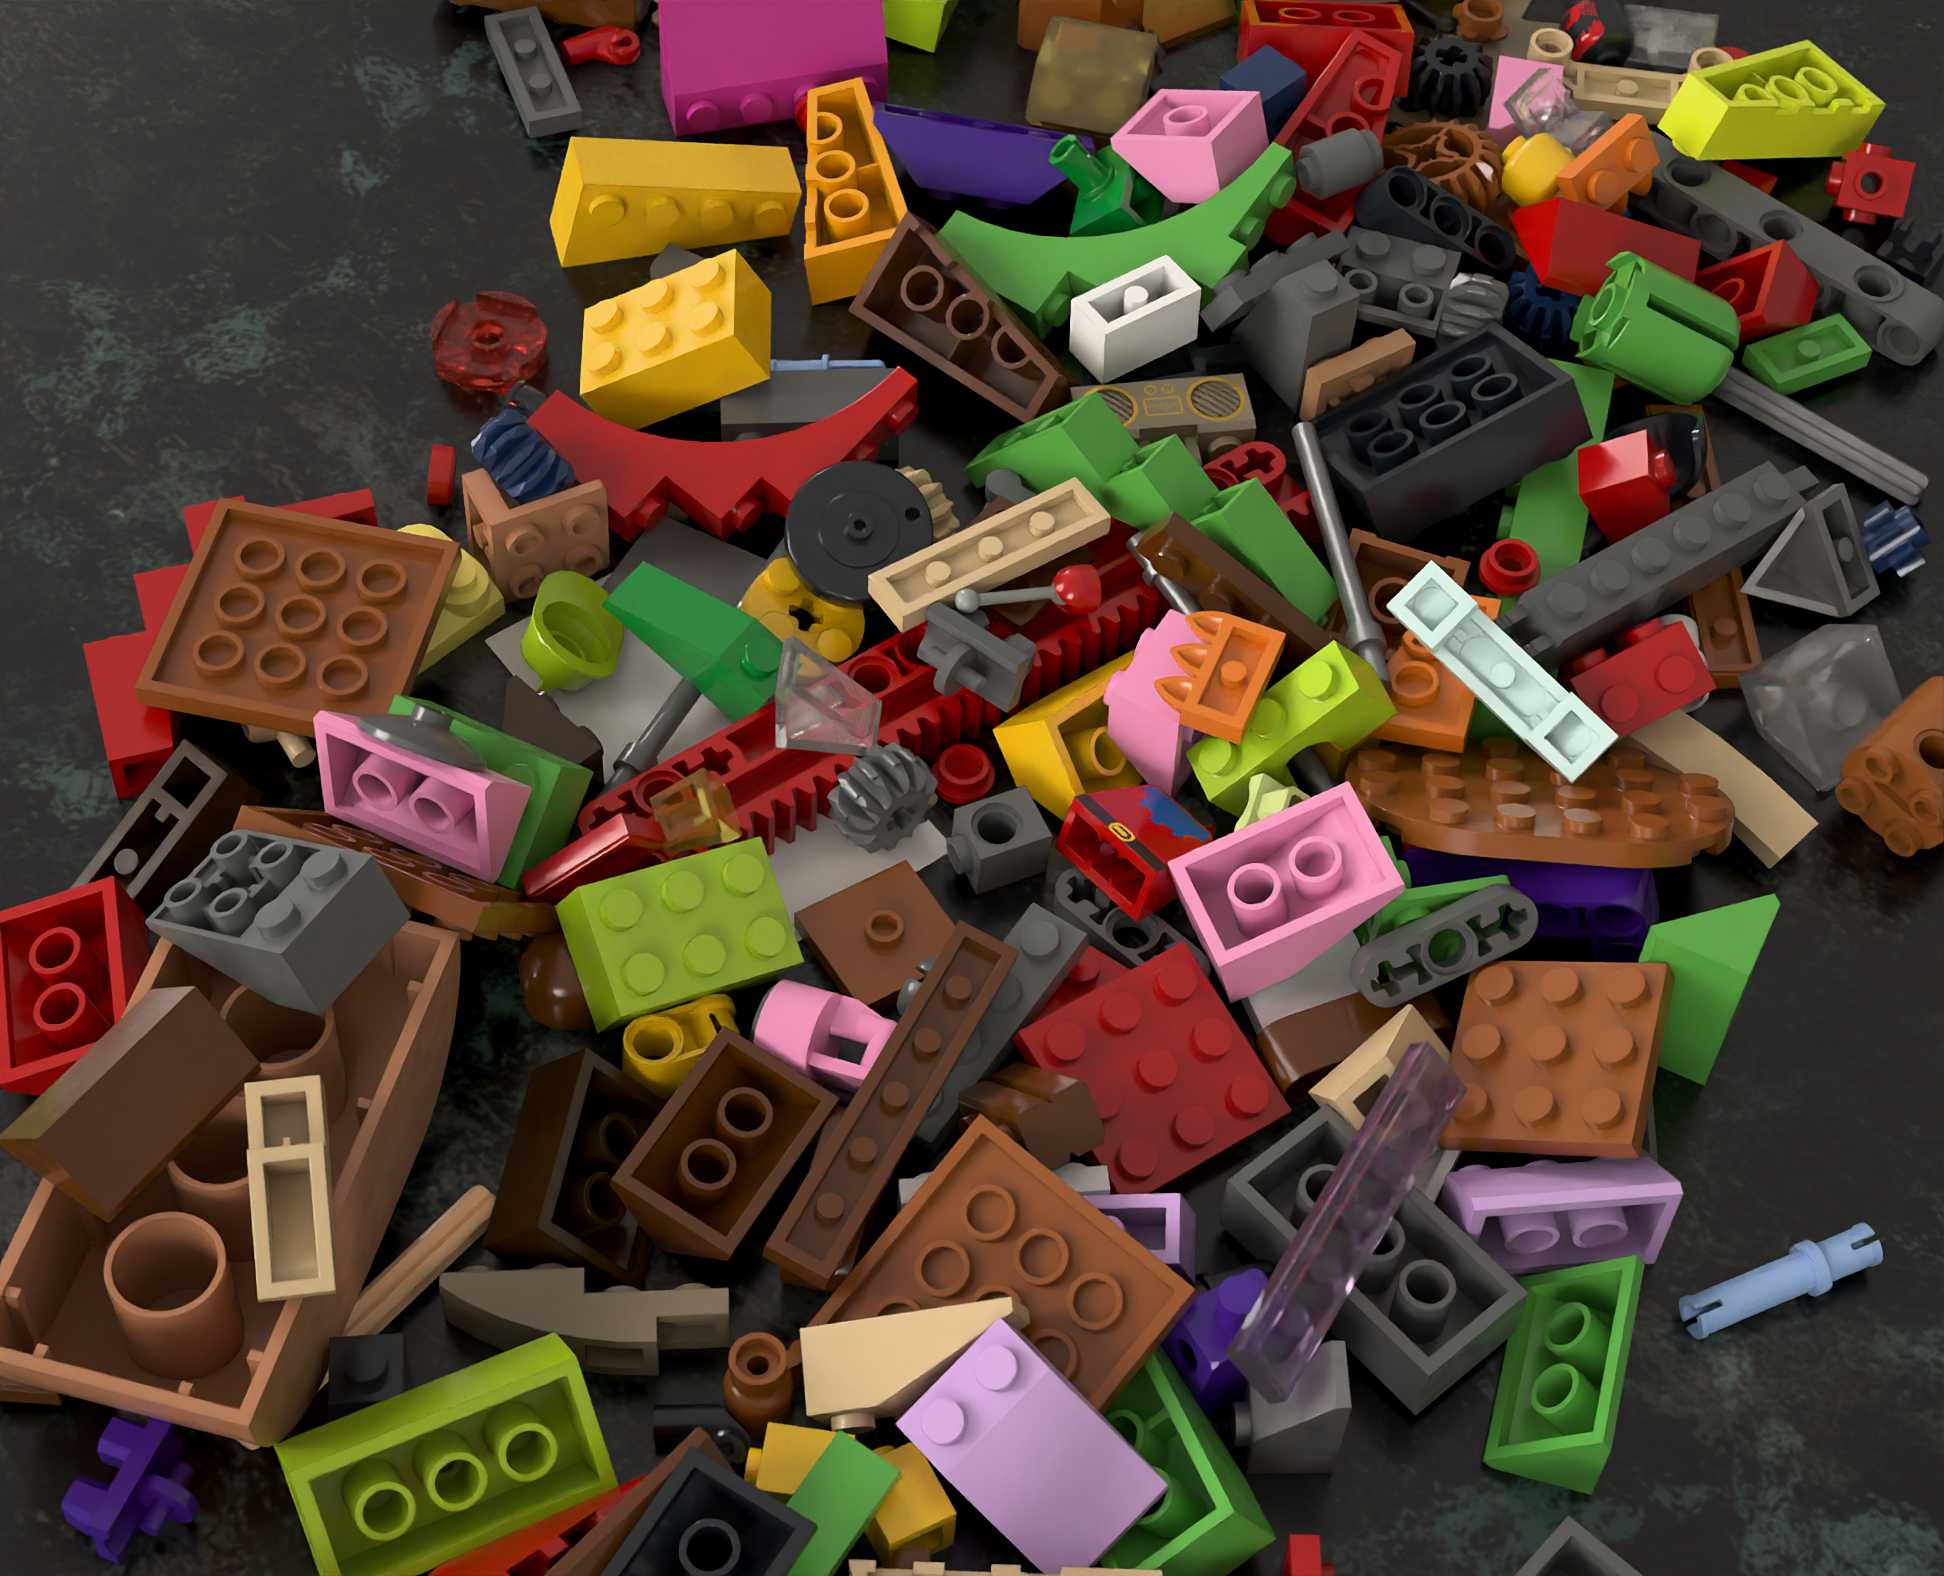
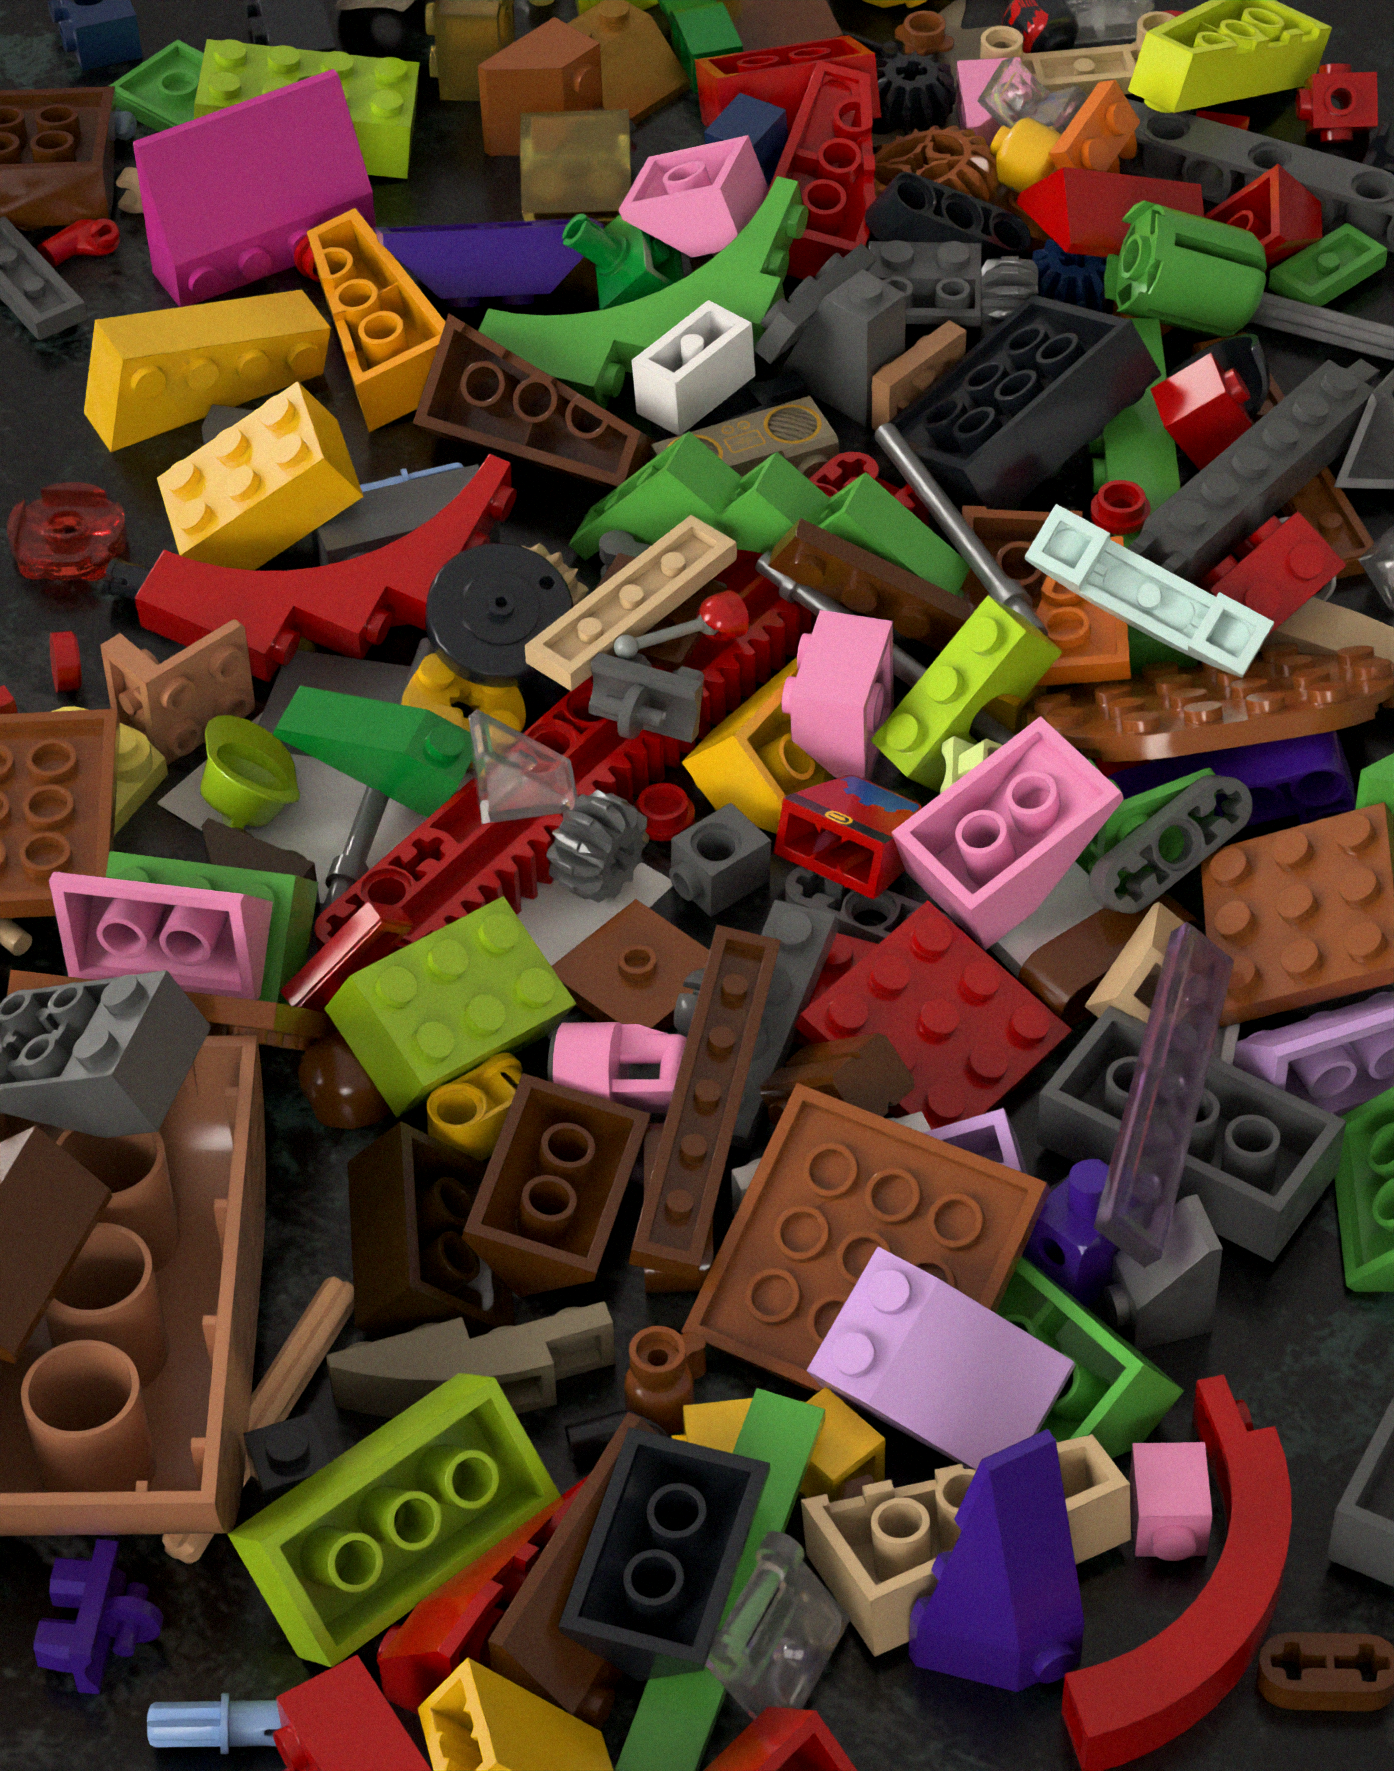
camera: 10 degrees left, 5 degrees down
(290, 1188) = (183, 1284): tan slope -> none
(425, 734) = (160, 865): dark grey dish -> none
(521, 458) = (153, 616): dark blue gear -> none
(696, 813) = (428, 896): clear yellow slope -> none
(890, 1361) = (779, 1323): tan slope -> none
(1223, 673) = (891, 652): orange plate -> none
(1338, 163) = (842, 184): dark grey brick -> none

